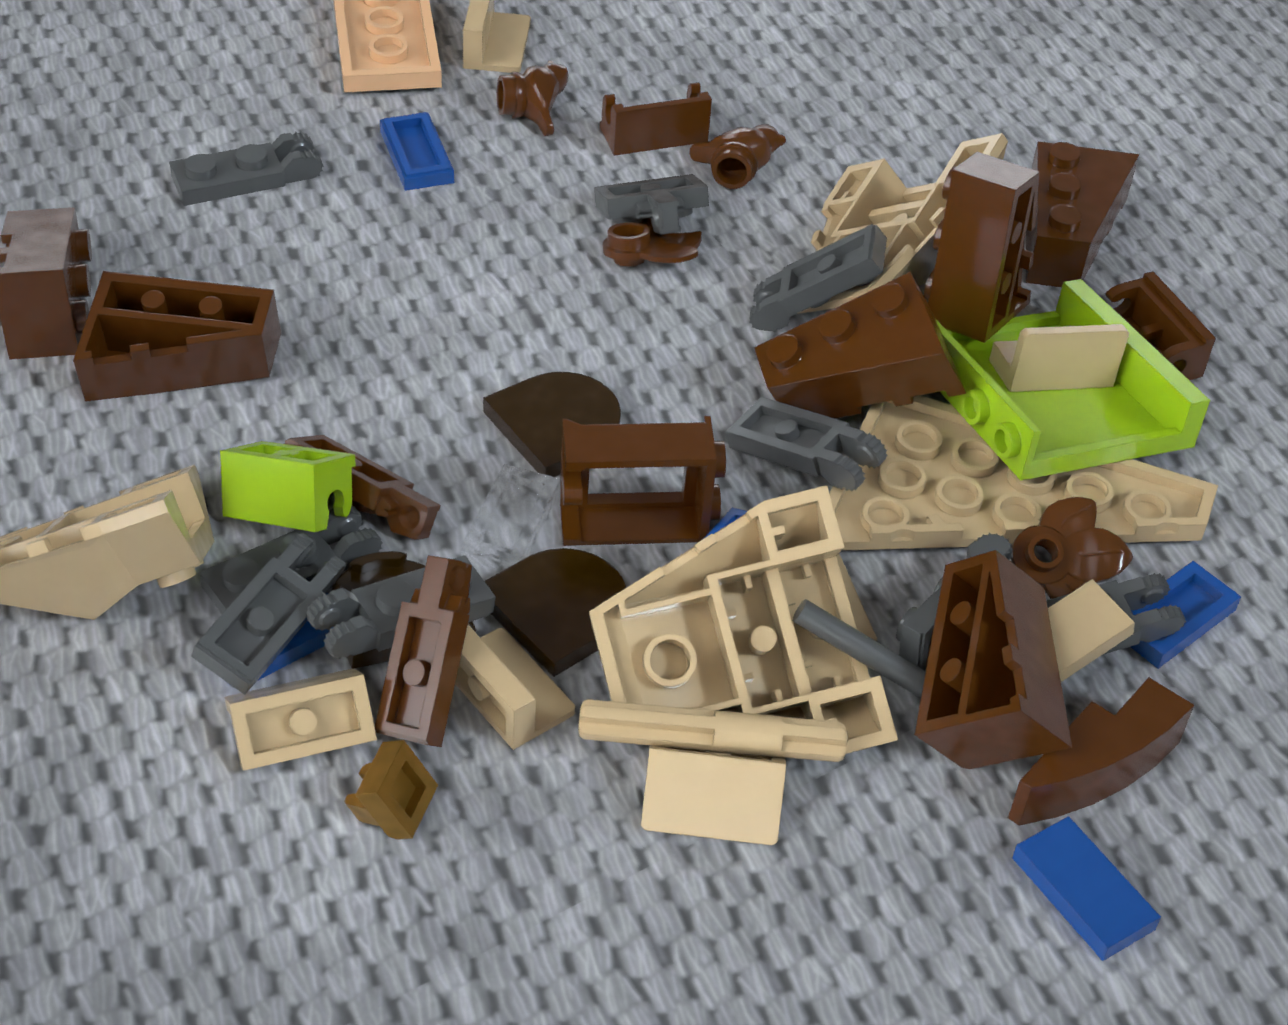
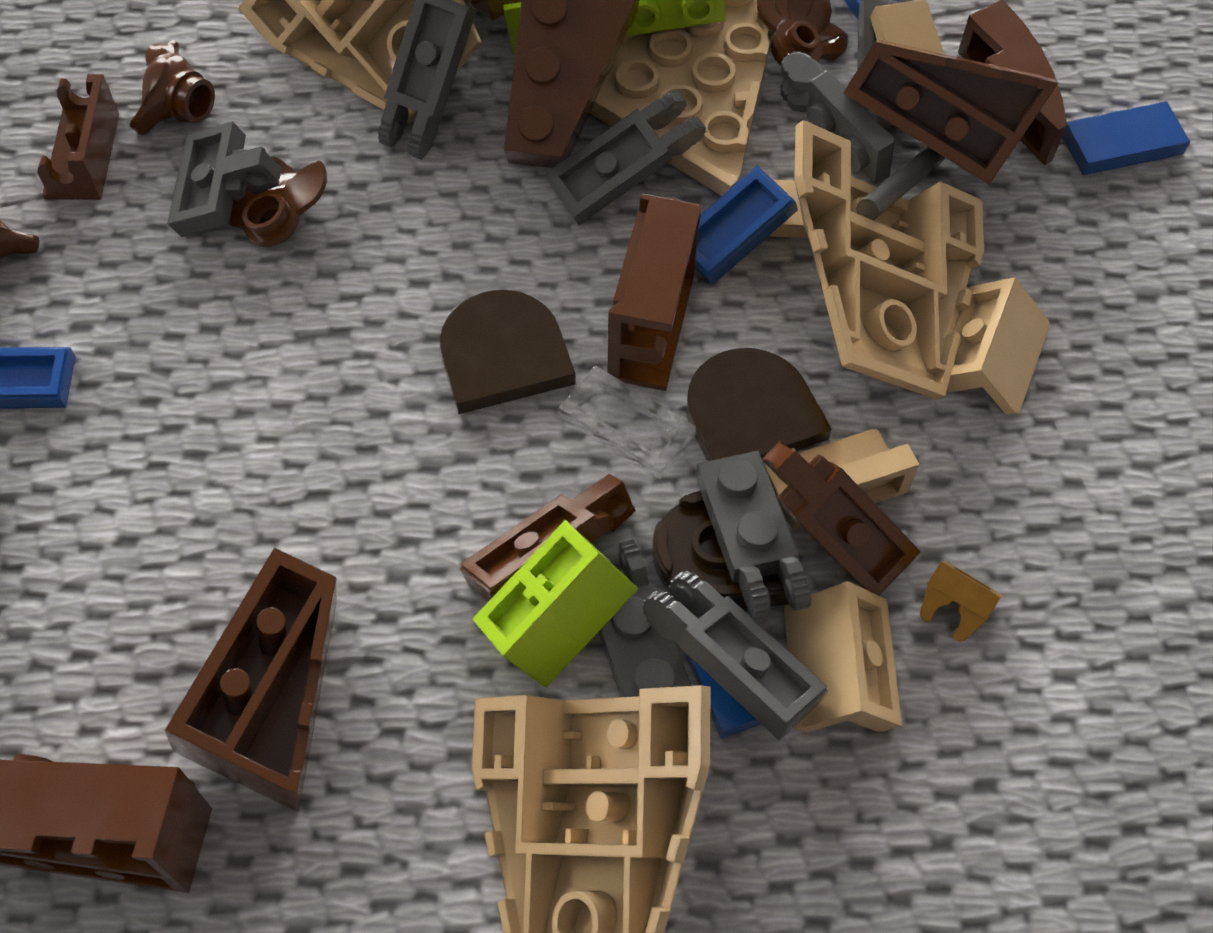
camera: 70 degrees left, 15 degrees up
(712, 730) = (964, 324): tan axle -> none

